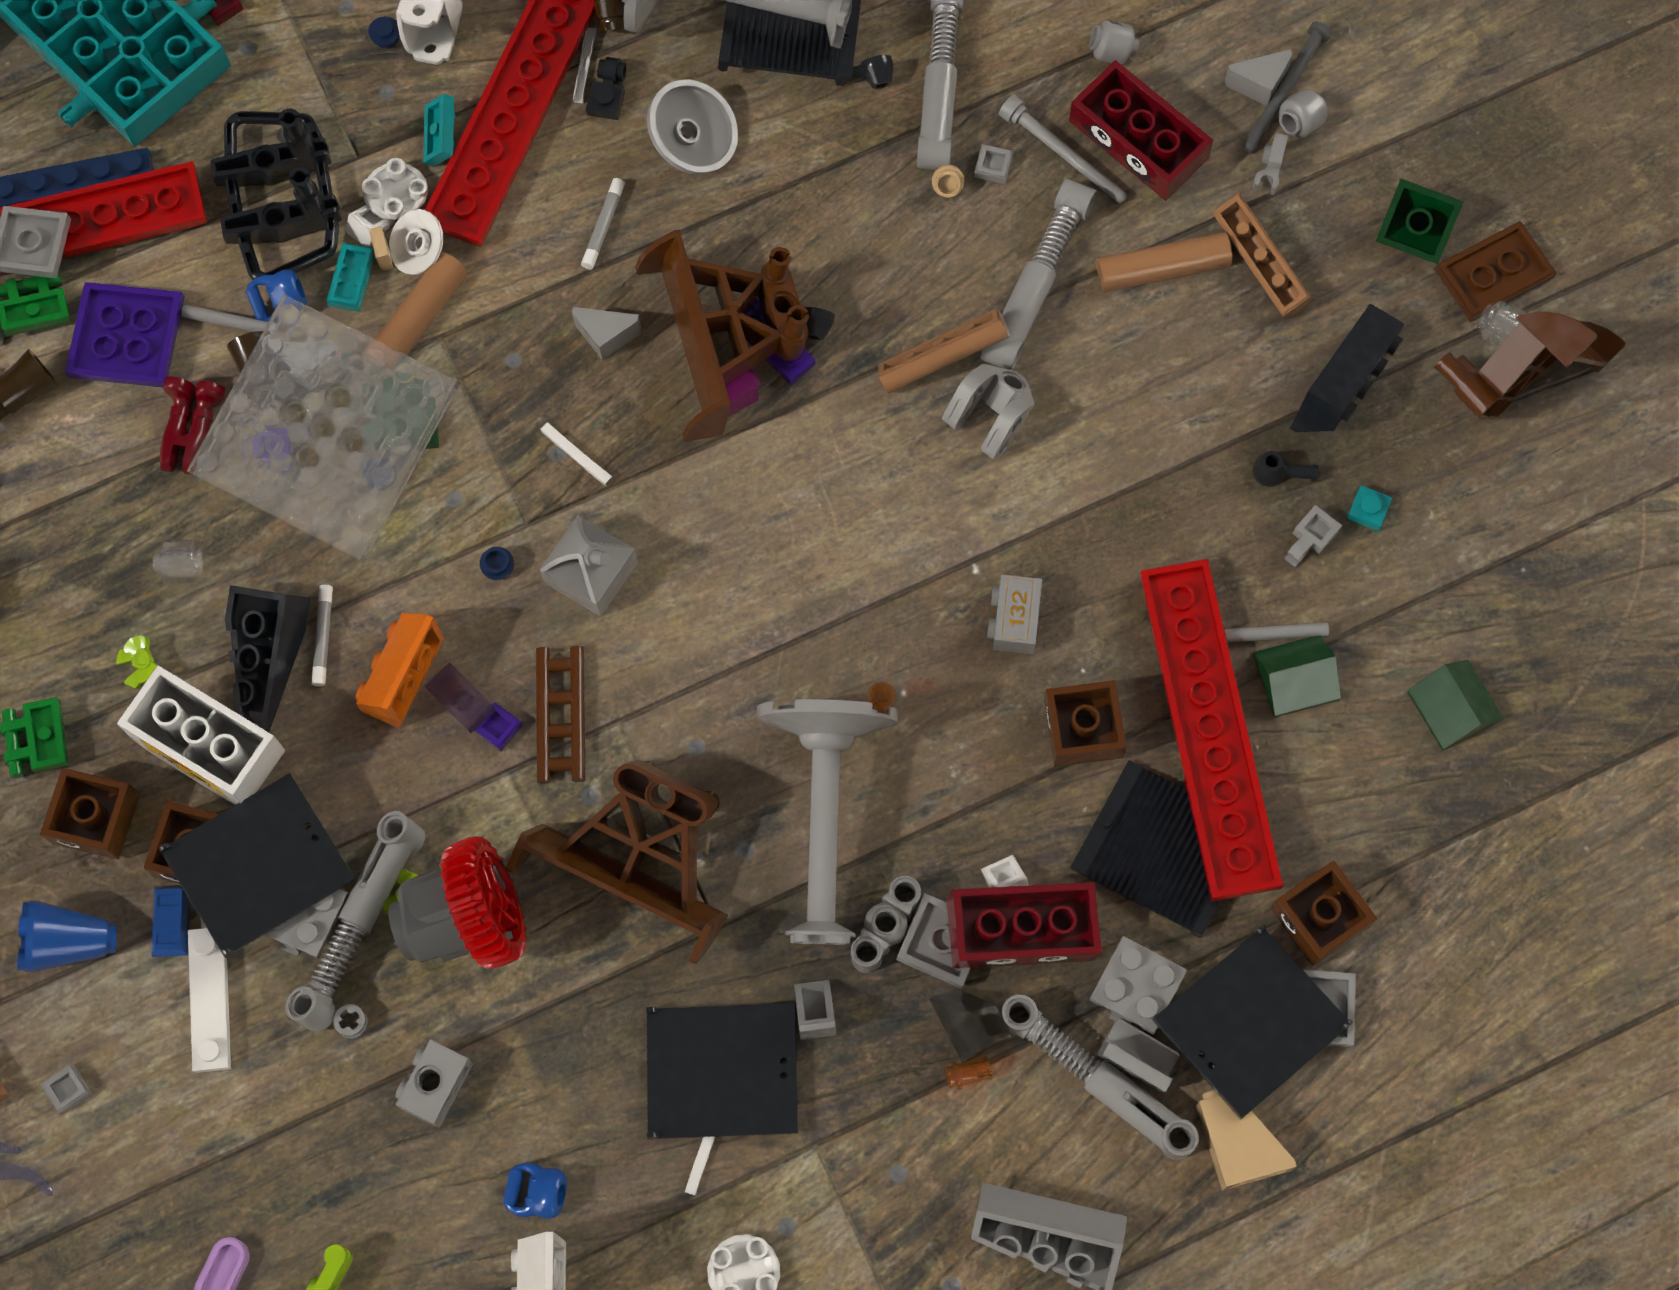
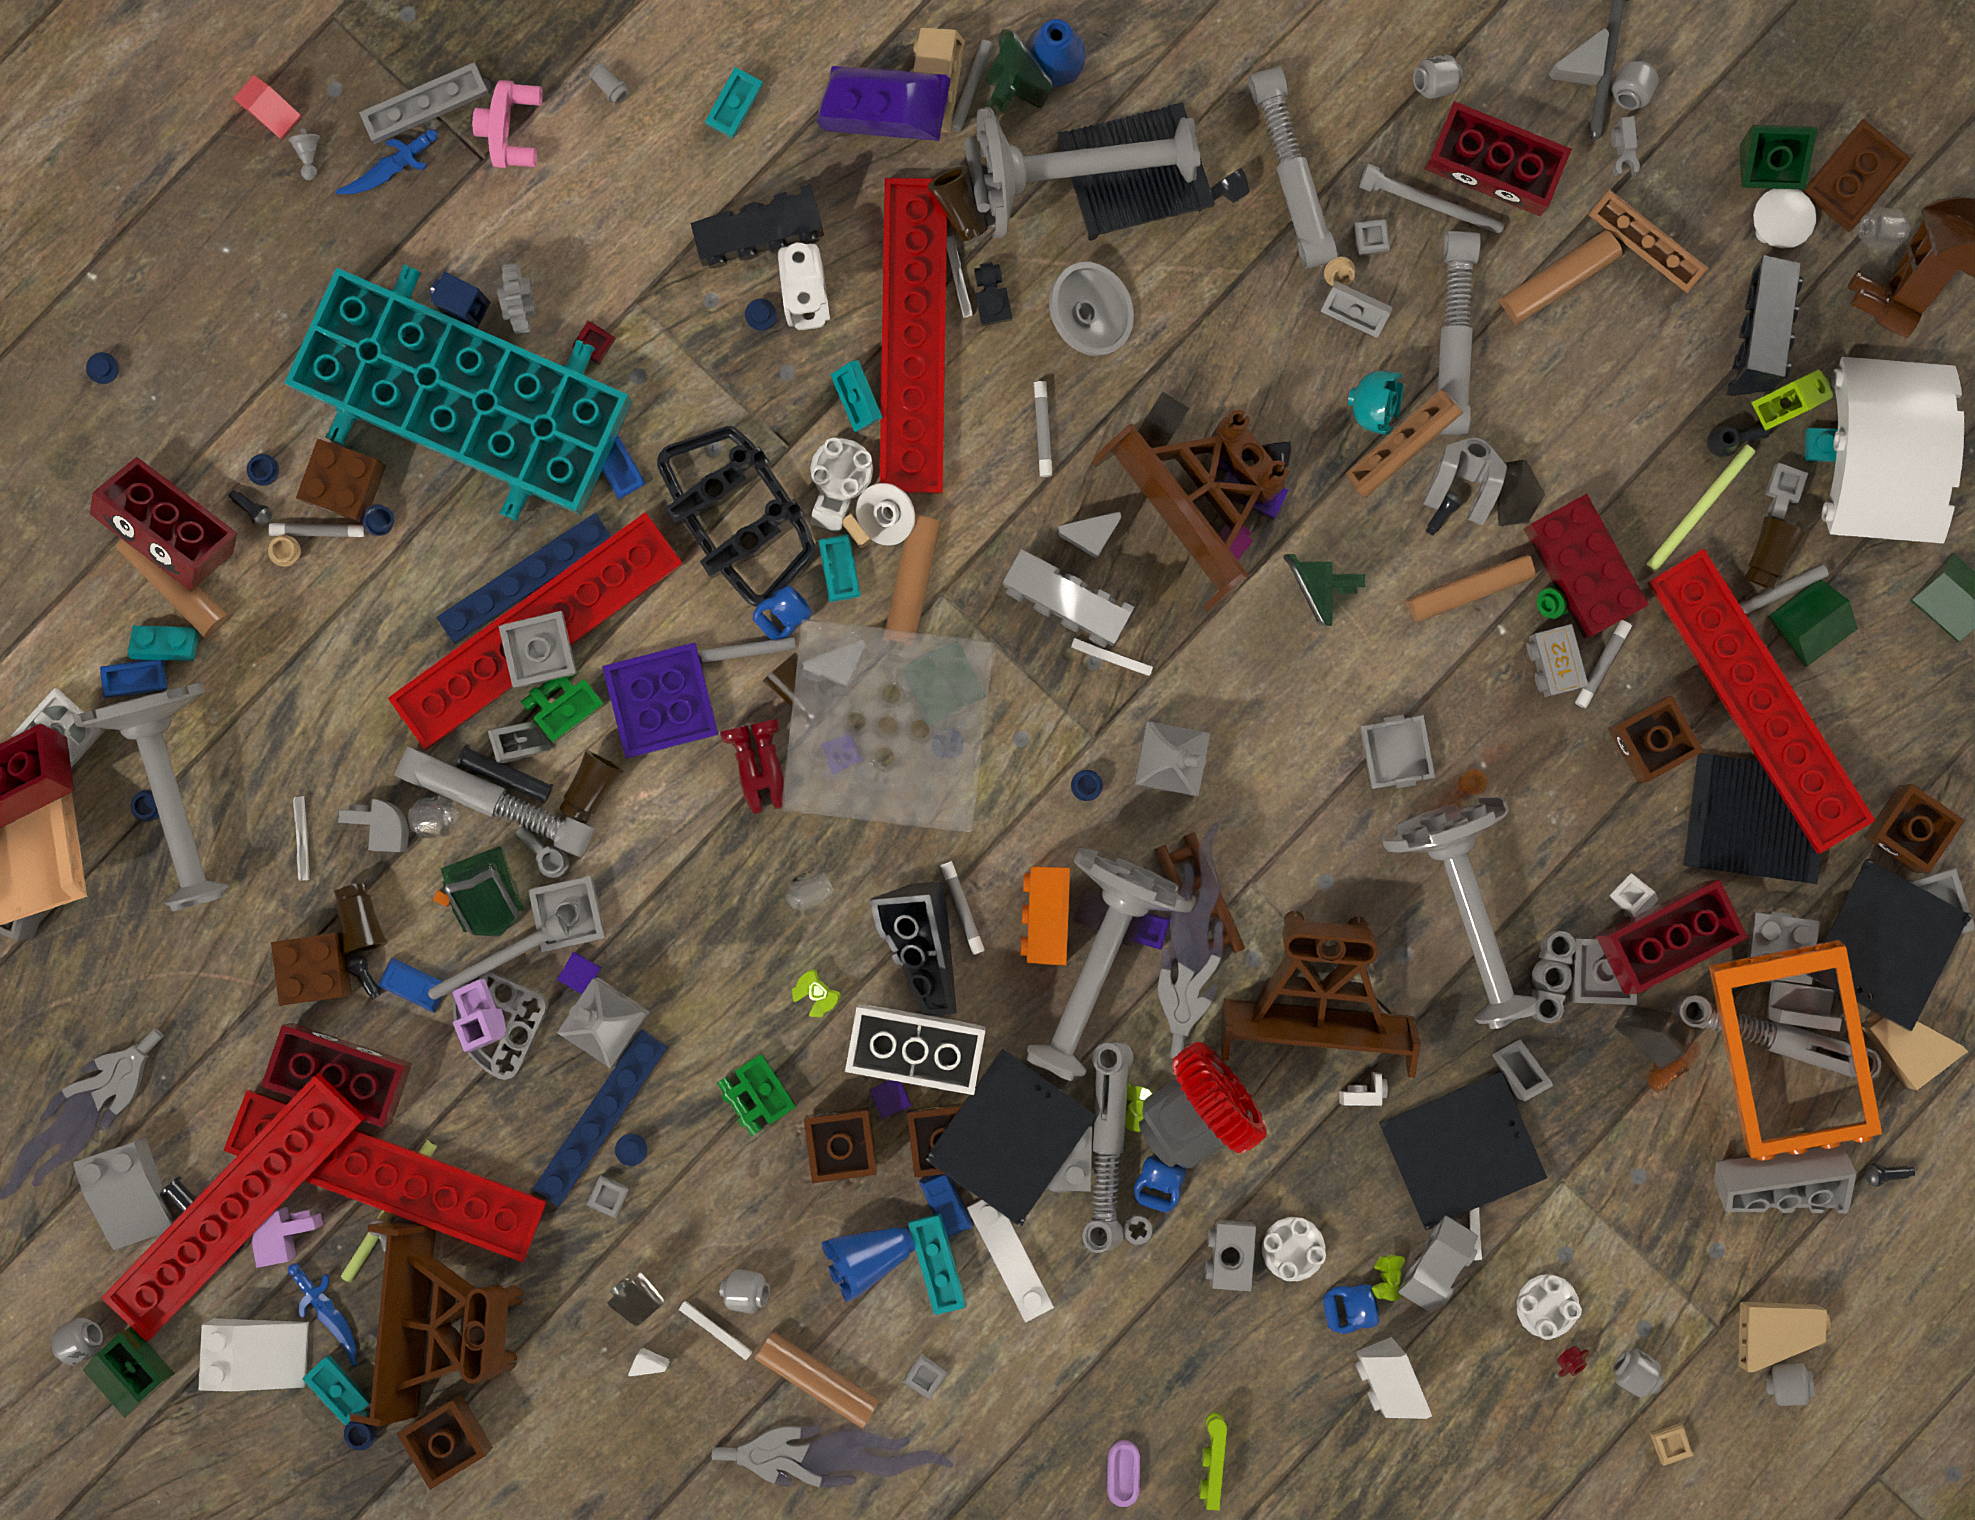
camera: 25 degrees left, 15 degrees up
(131, 974) = (937, 1264): none -> teal plate
(162, 789) = (890, 1098): none -> dark purple tile
(191, 122) = (622, 471): none -> blue tile
(400, 976) = (1161, 1177): none -> blue piece
(477, 668) = (1129, 893): none -> light grey piece
(499, 806) = (1192, 950): none -> piece
(501, 1104) = (1293, 1249): none -> white dish
(555, 380) = (1066, 598): none -> light grey wedge
(595, 1164) = (1391, 1276): none -> lime piece
(636, 969) = (1360, 1096): none -> white bracket
(644, 1177) = (1444, 1256): none -> light grey brick
(720, 247) = (1163, 421): none -> clear smoke slope
(806, 450) = (1317, 583): none -> clear green piece
(819, 643) = (1397, 752): none -> light grey piece
(936, 305) = (1377, 400): none -> teal cylinder
(950, 219) = (1356, 309): none -> light grey plate
(957, 513) = (1470, 588): none -> medium nougat brick
(969, 429) = (1450, 504): none -> black piece
(1035, 559) = (1552, 602): none -> green plate
(1042, 442) = (1518, 495): none -> clear smoke slope
(1064, 637) = (1603, 663): none -> light grey bar
(1080, 533) = (1586, 566): none -> dark red brick
(1123, 988) = (1777, 966): none -> orange window
(1156, 1271) = (1877, 1175): none -> black piece
(1221, 524) = (1700, 508): none -> yellowish green piece
(1278, 587) = (1773, 552): none -> dark brown plant
(1351, 446) = (1803, 394): none -> lime torso
(1408, 284) = (1784, 218): none -> white dish
(1436, 533) = (1895, 450): none -> white panel

